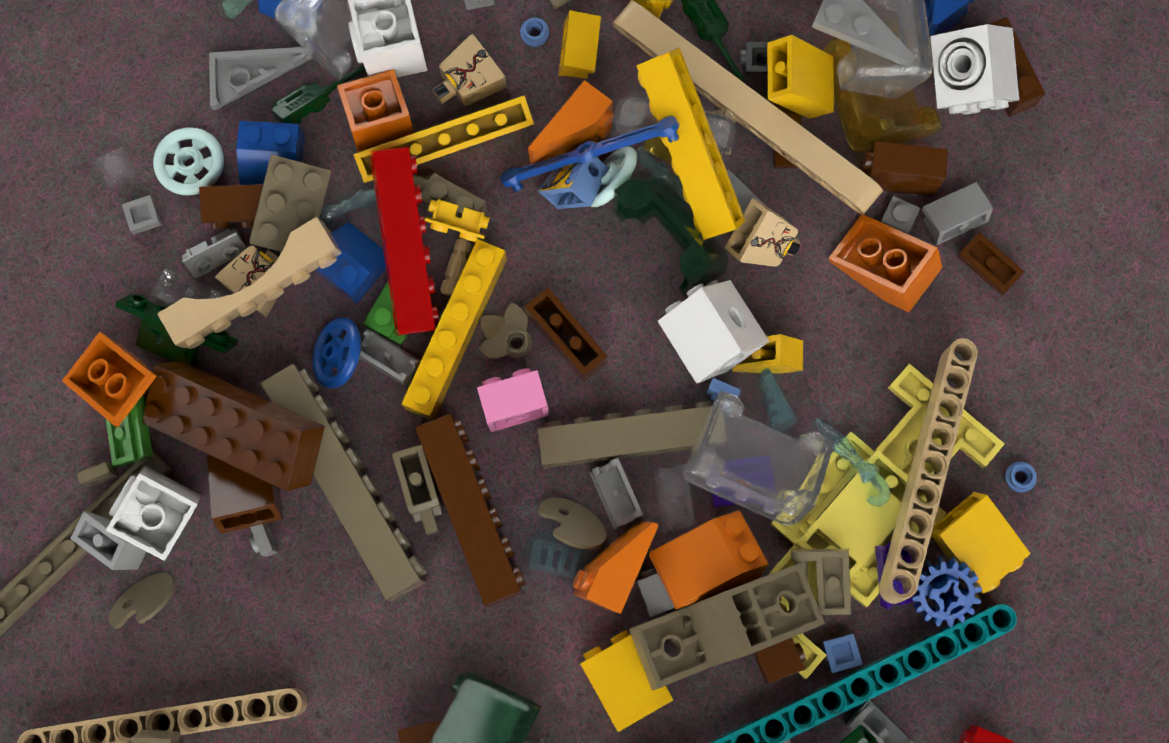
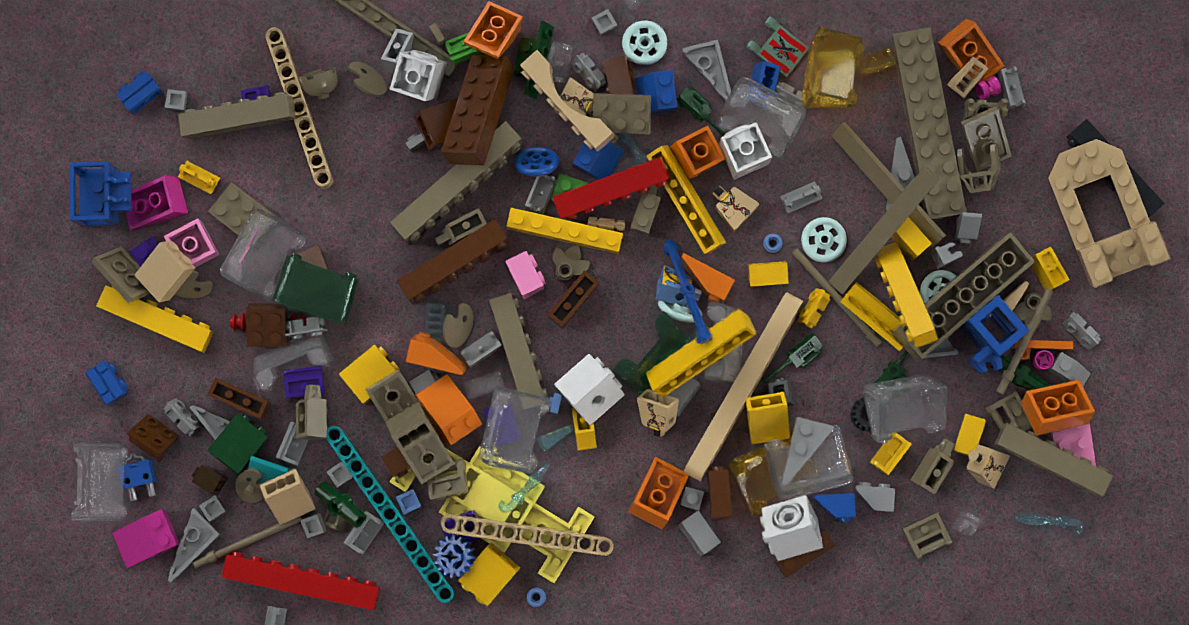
camera: 80 degrees right, 5 degrees up
(129, 680) = (319, 82): none -> dark tan cylinder
(445, 217) = (631, 208): yellow hinge -> none
(990, 264) = (670, 560): reddish brown plate -> none

